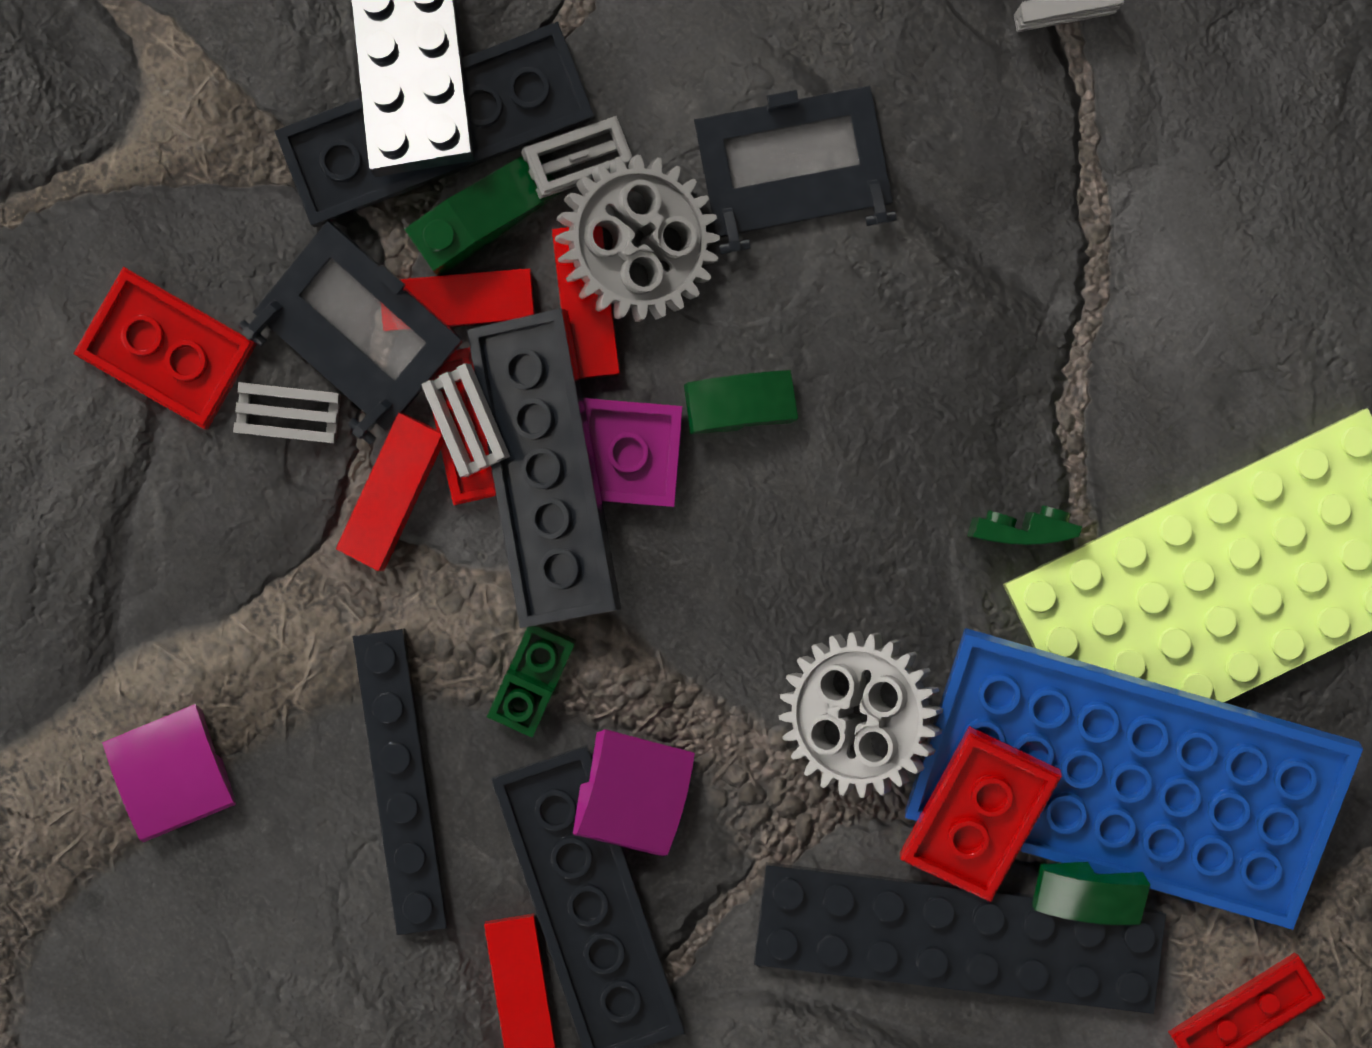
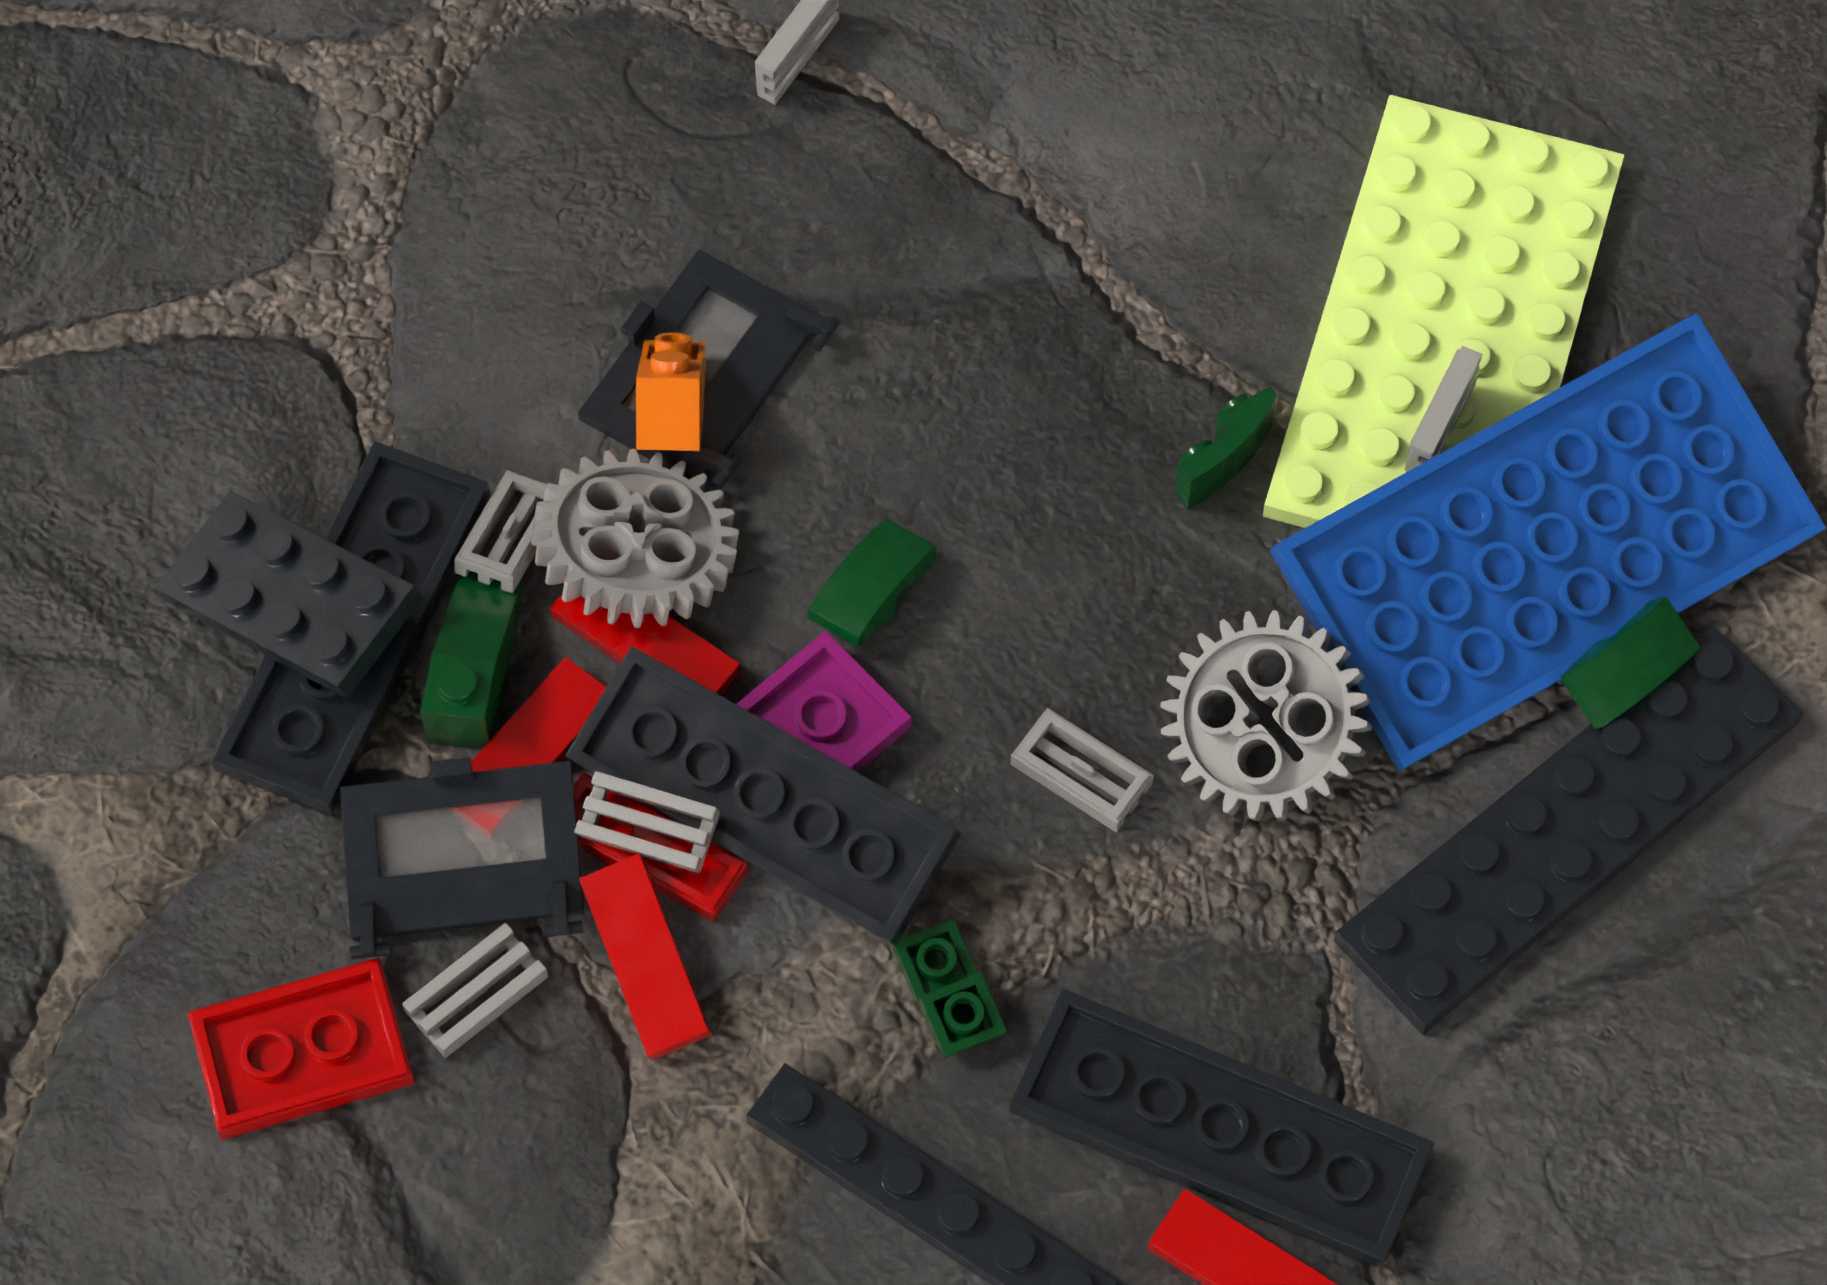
camera: 45 degrees left, 25 degrees down
(634, 793) = (1150, 980): magenta slope -> none
(732, 586) = (1067, 788): none -> light grey tile
(749, 169) = (670, 393): none -> orange slope
(980, 814) = (1462, 692): red tile -> none
(1156, 647) = (1444, 408): none -> light grey tile

